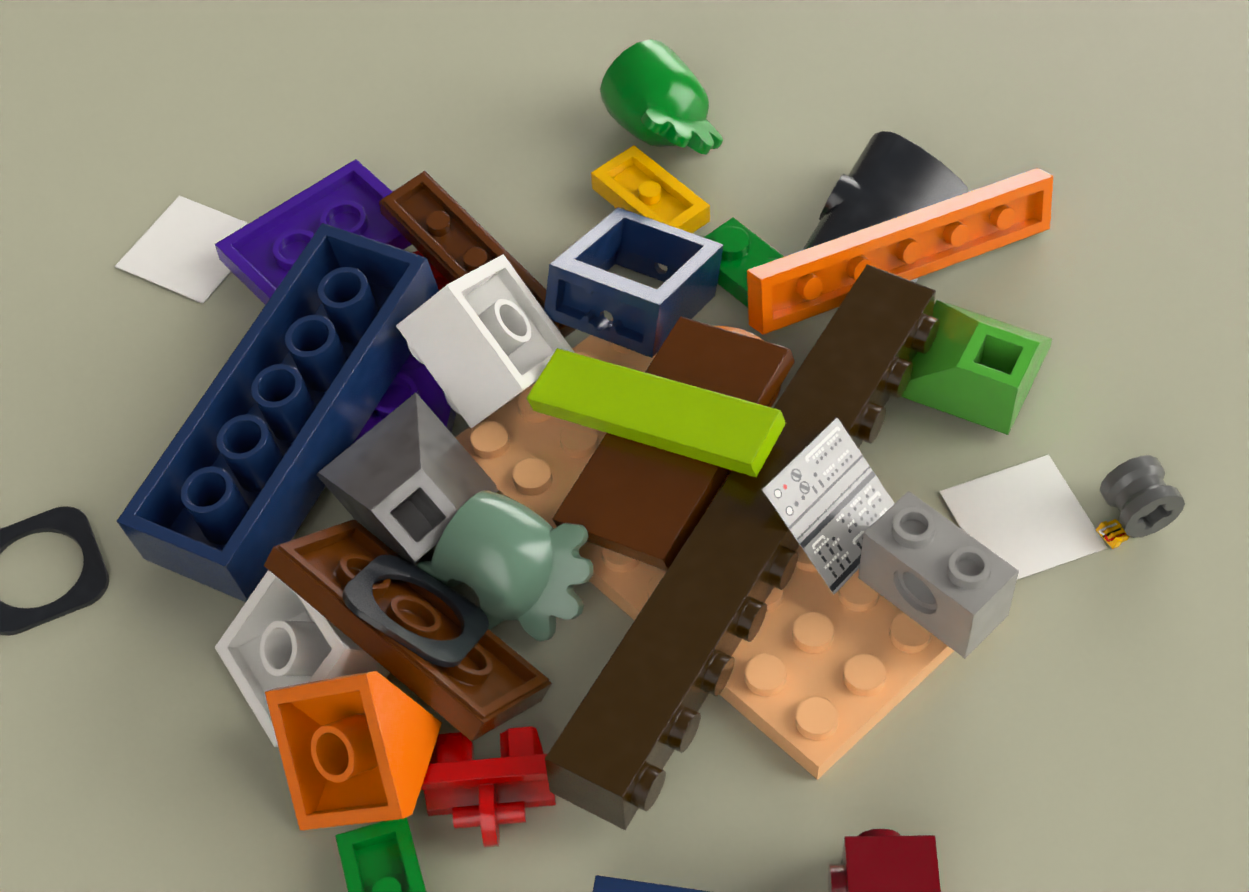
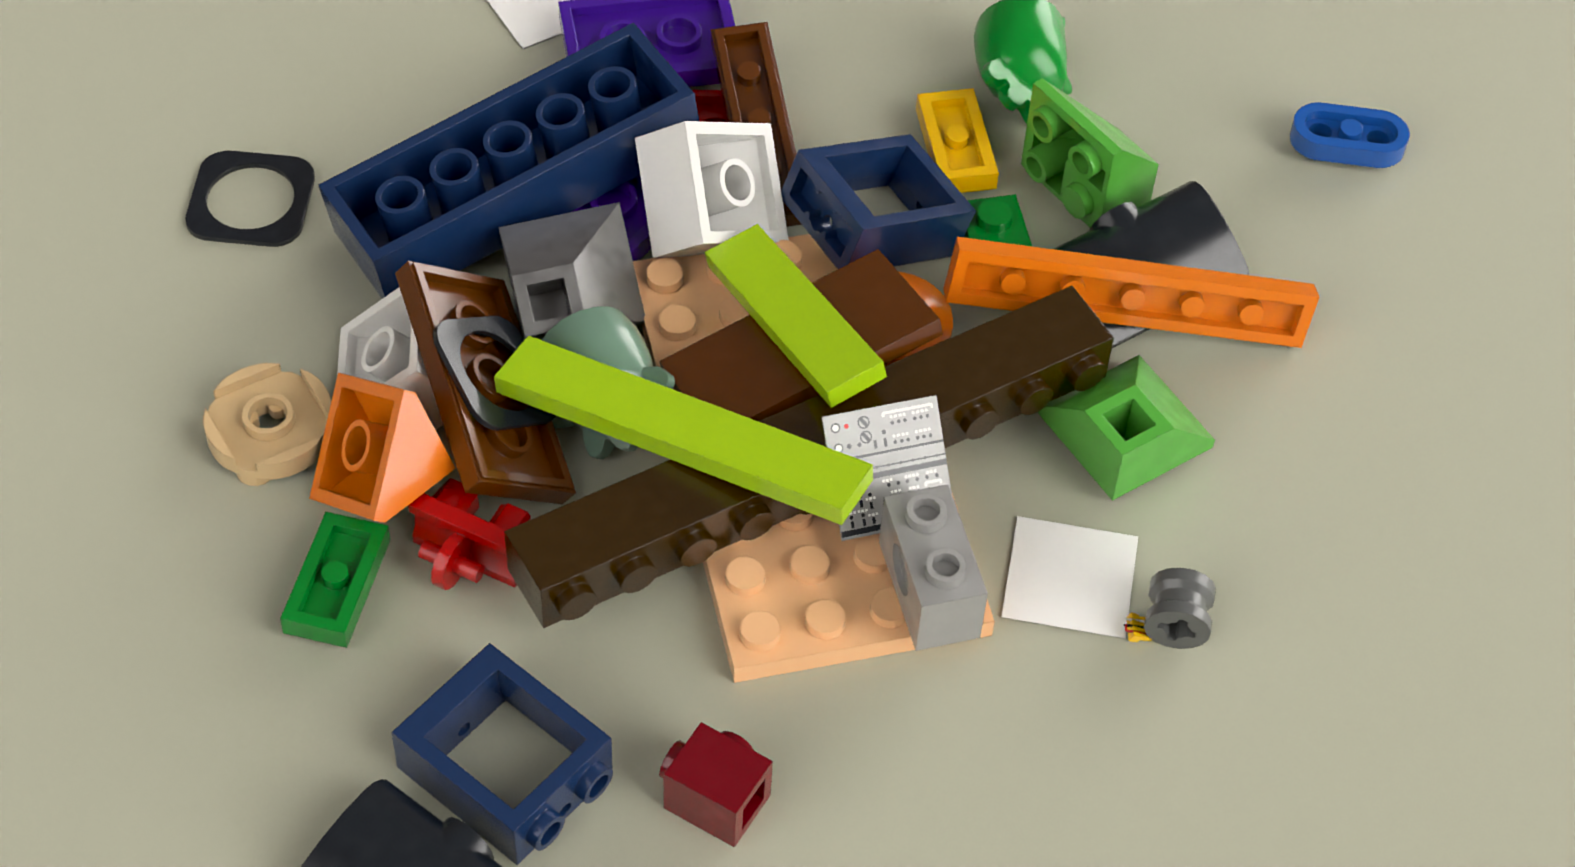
camera: 25 degrees right, 0 degrees up
(223, 813) = (273, 452): none -> tan plate
(639, 568) = (685, 429): none -> lime tile
(771, 159) = (1083, 156): none -> bright green slope
(955, 40) = (1349, 135): none -> blue plate

